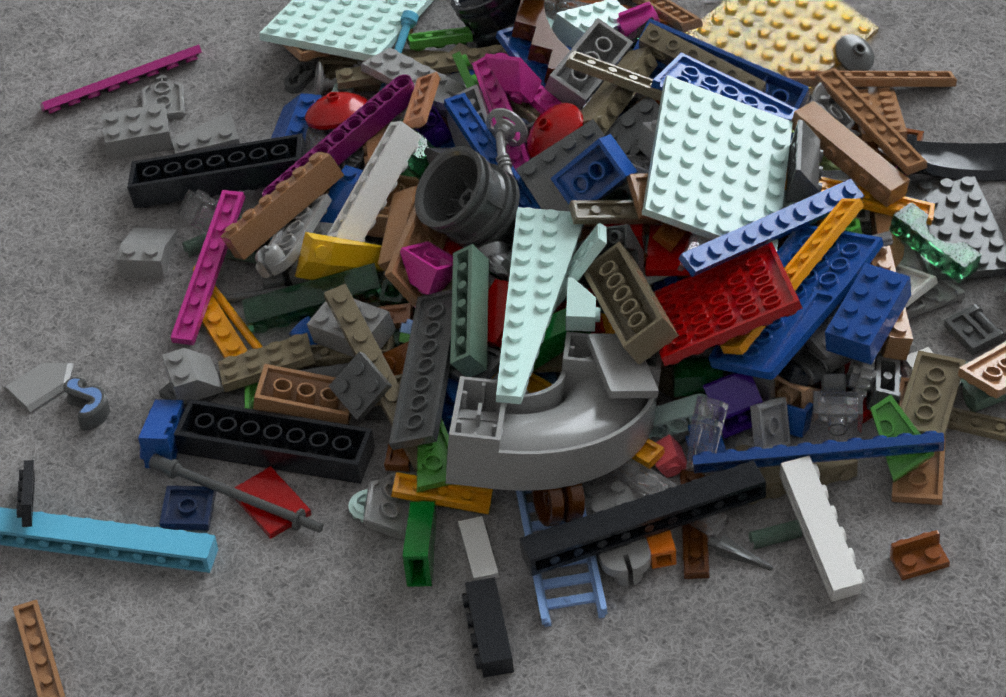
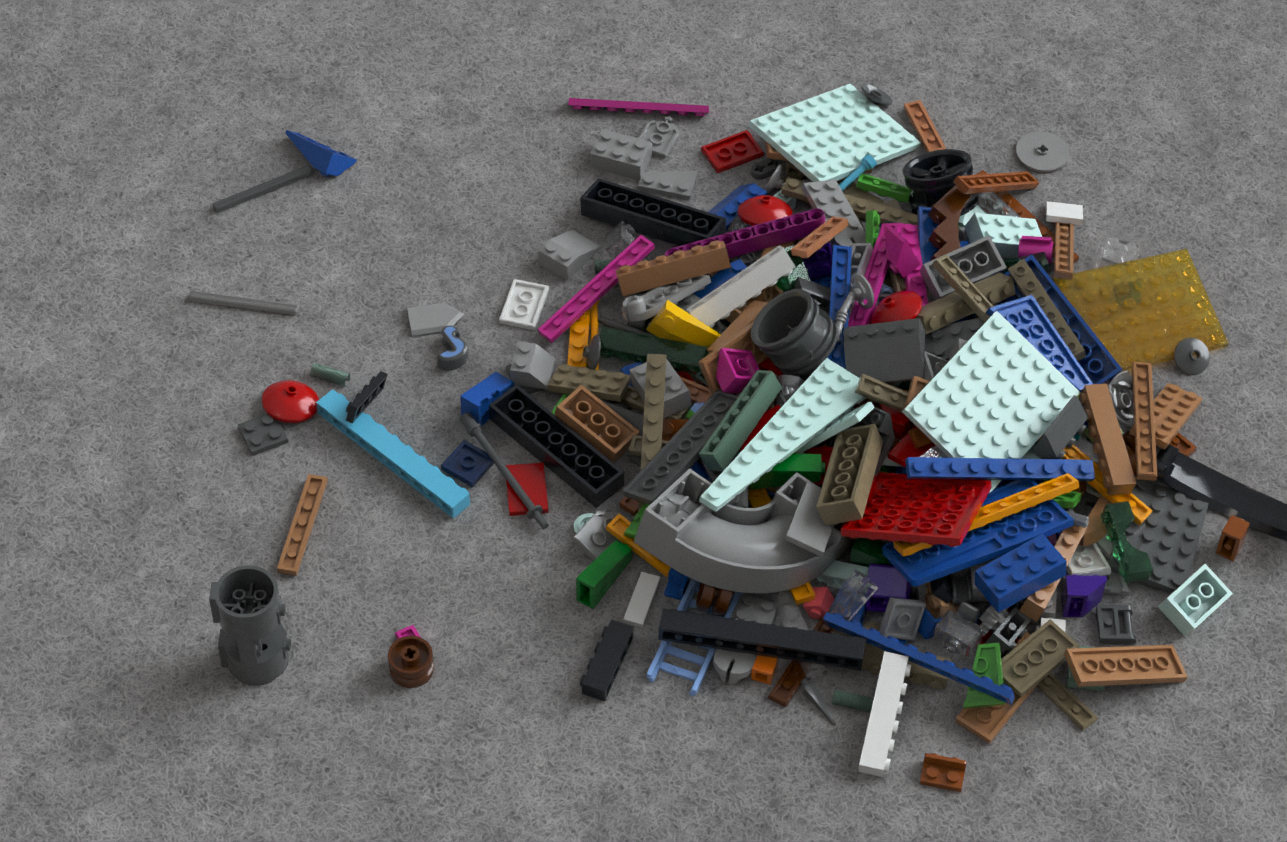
camera: 25 degrees right, 5 degrees up
(134, 323) = (524, 304): none -> white tile
(249, 329) = (592, 352): none -> dark grey dish
(251, 78) = (732, 151): none -> red tile
(360, 386) = (633, 436): dark grey plate -> none
(505, 513) = (676, 584): none -> blue panel
(580, 308) = (813, 460): light aqua slope -> none
(594, 171) = (895, 360): blue slope -> none
(882, 78) = (1188, 384): medium nougat tile -> none
(926, 314) = (1081, 594): none -> dark purple slope

